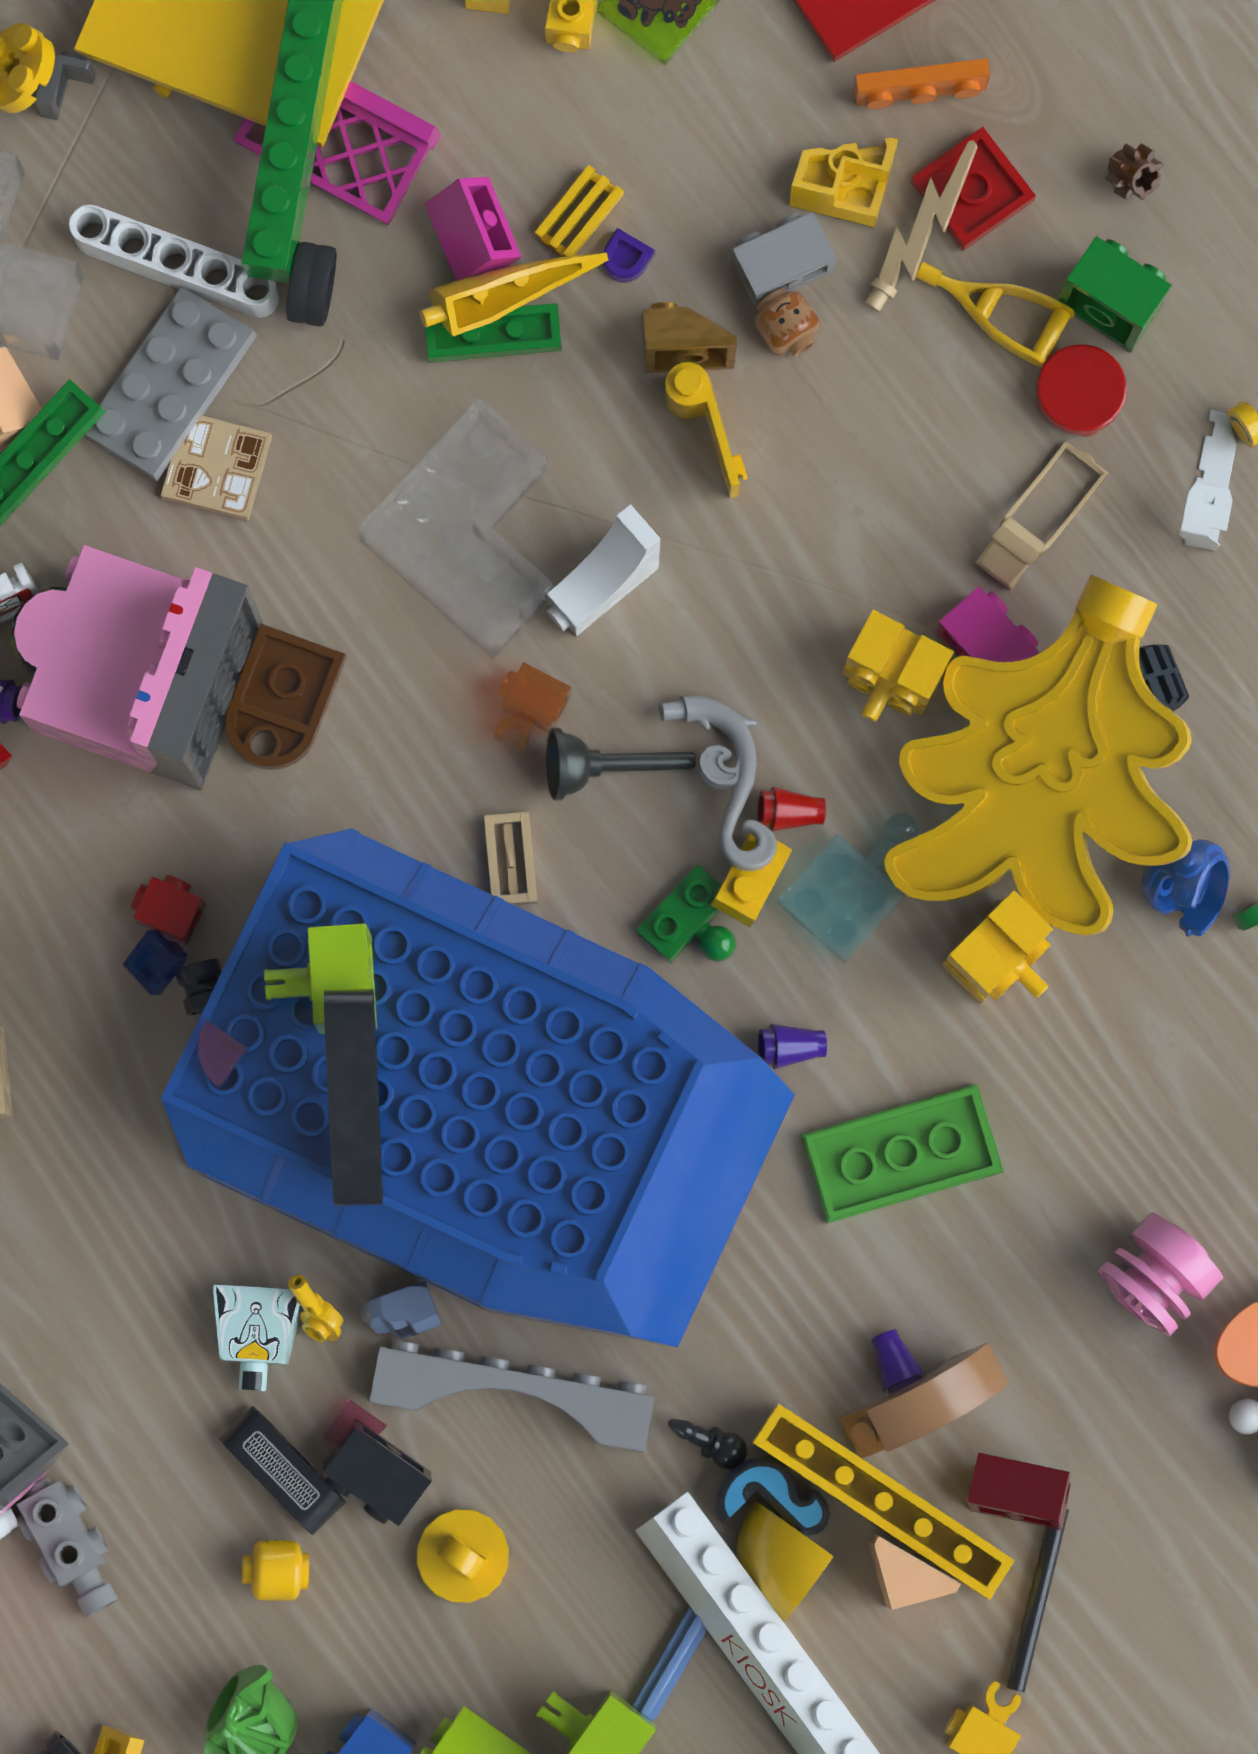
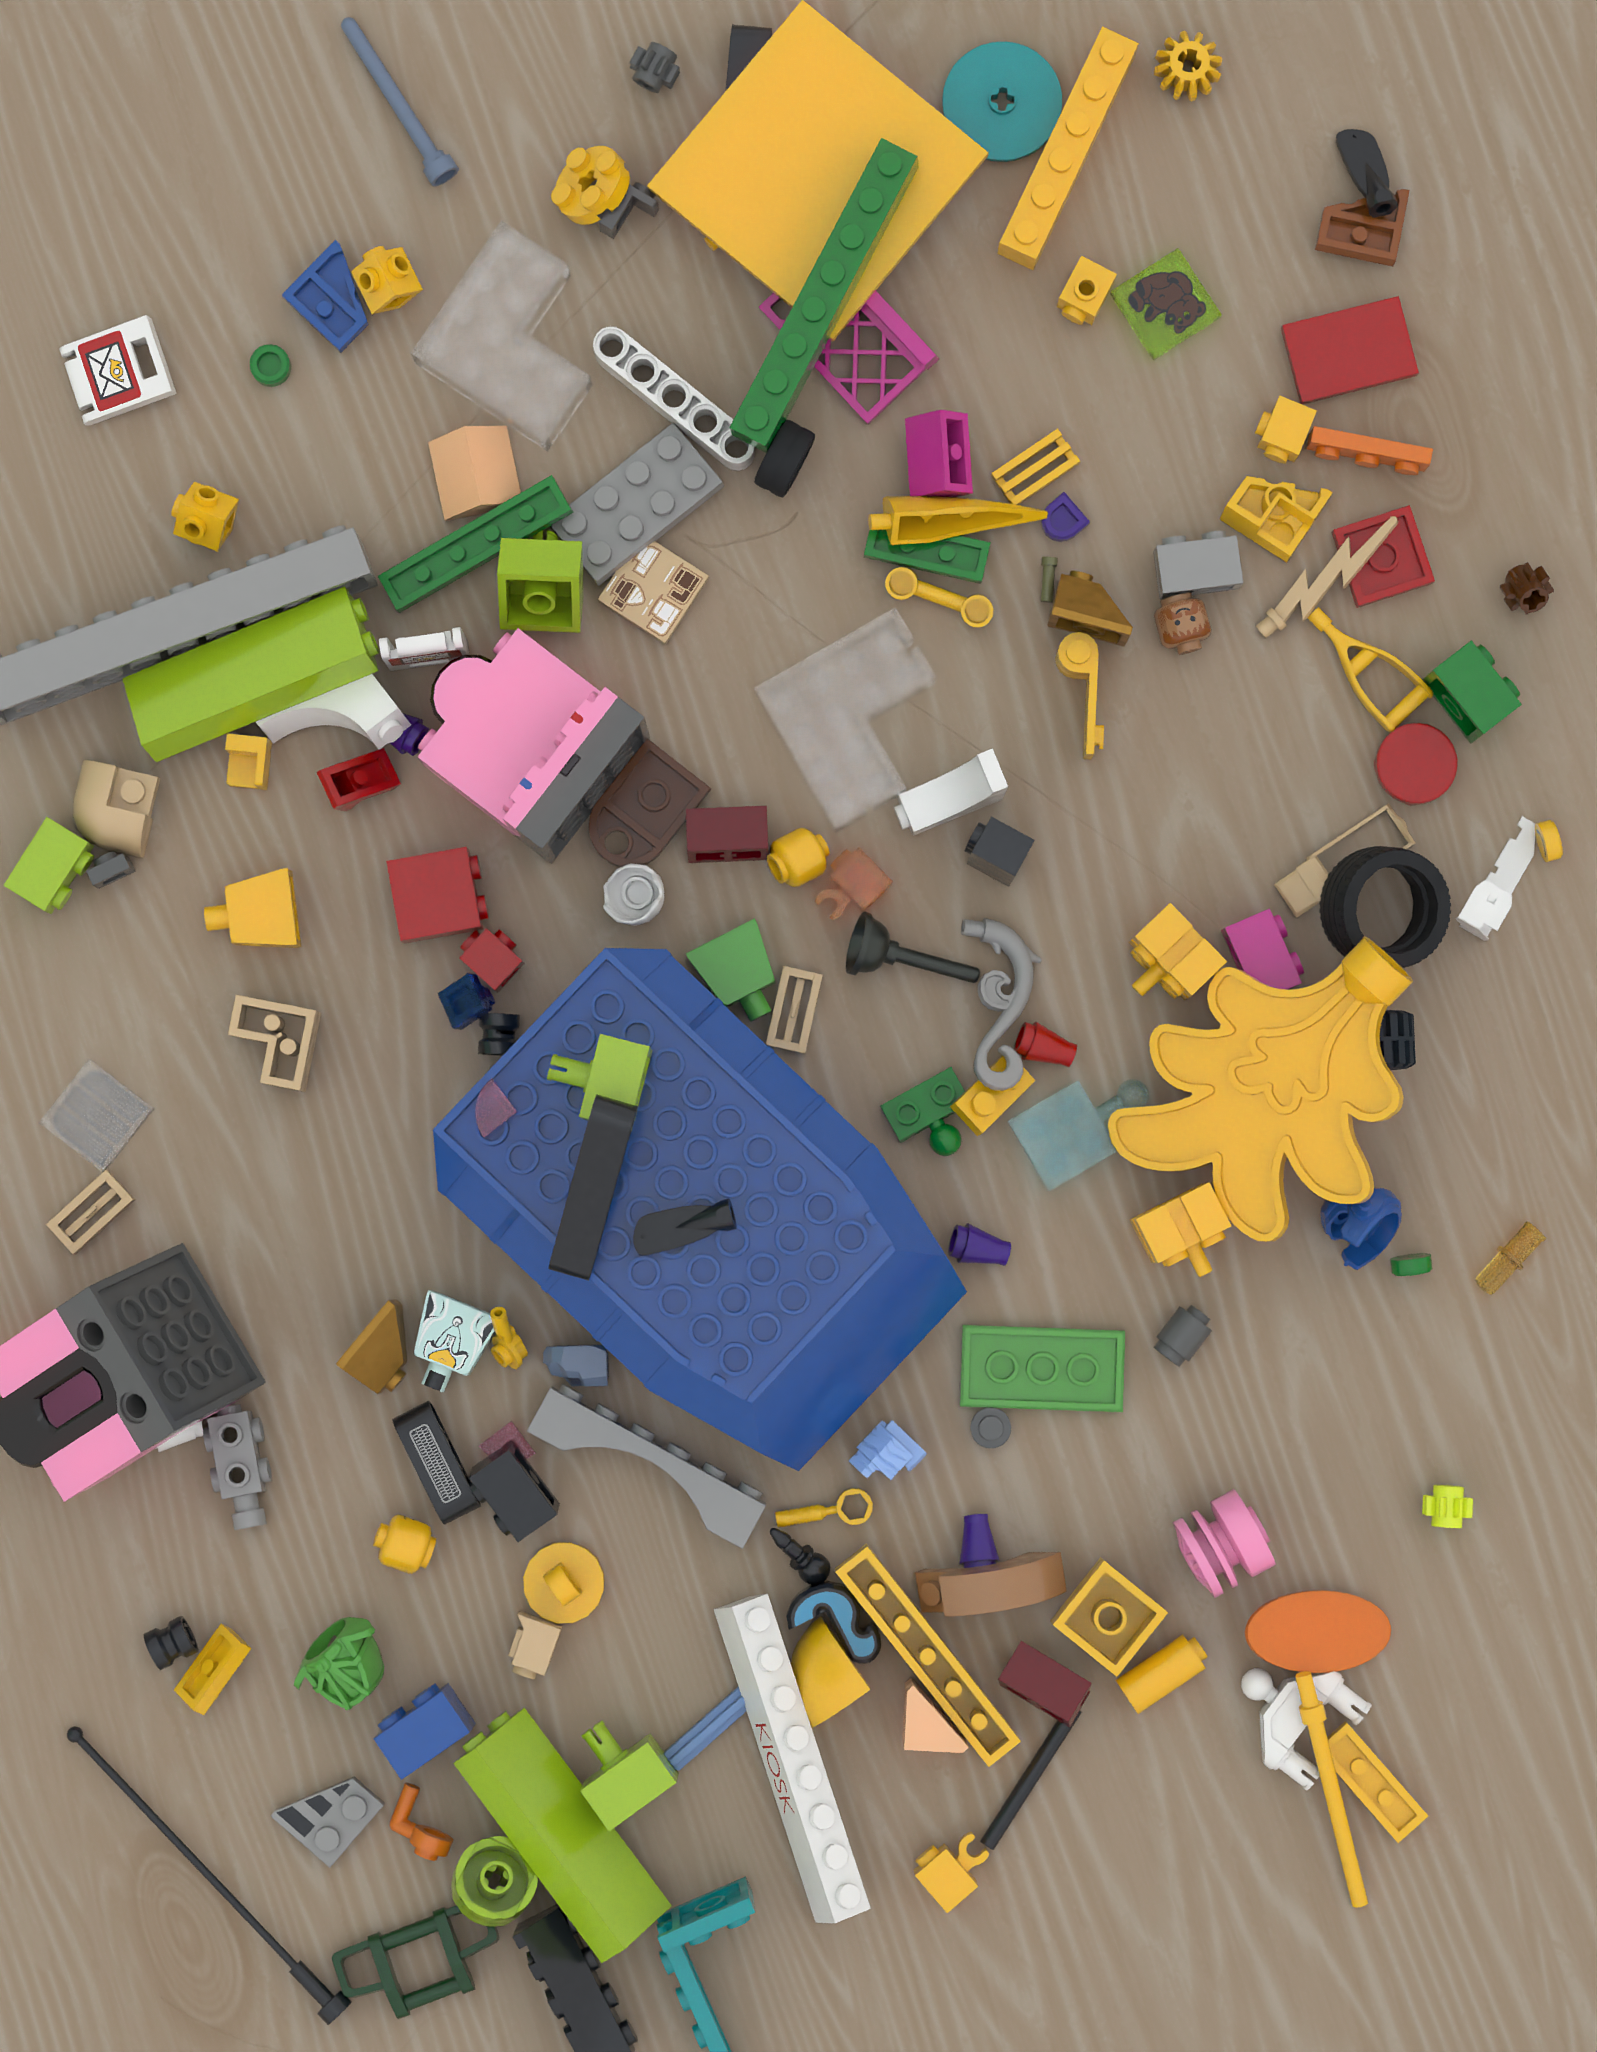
camera: 20 degrees right, 5 degrees up
(88, 859) = (437, 894): none -> red brick
(94, 495) = (540, 584): none -> lime brick
(180, 1367) = (379, 1350): none -> pearl gold slope
(299, 791) = (633, 894): none -> white hair
(379, 696) = (727, 834): none -> dark red hinge
(436, 832) = (736, 968): none -> bright green torso
(452, 1635) = (533, 1645): none -> tan window
(462, 696) = (798, 857): none -> yellow head
(464, 1113) = (681, 1226): none -> black piece
(479, 376) = (904, 583): none -> yellow bar
(627, 307) = (1049, 565): none -> olive piece
(672, 615) = (998, 850): none -> black brick
(714, 1387) = (819, 1512): none -> yellow piece
(765, 1296) = (887, 1451): none -> light blue hair
(826, 90) = (1284, 430): none -> yellow brick
(868, 1235) = (990, 1427): none -> dark grey plate
(1040, 1067) = (1183, 1335): none -> dark grey brick
(1063, 1394) = (1108, 1617): none -> yellow brick
(1137, 512) = (1429, 895): none -> black tyre
(1141, 1437) = (1162, 1672): none -> yellow brick

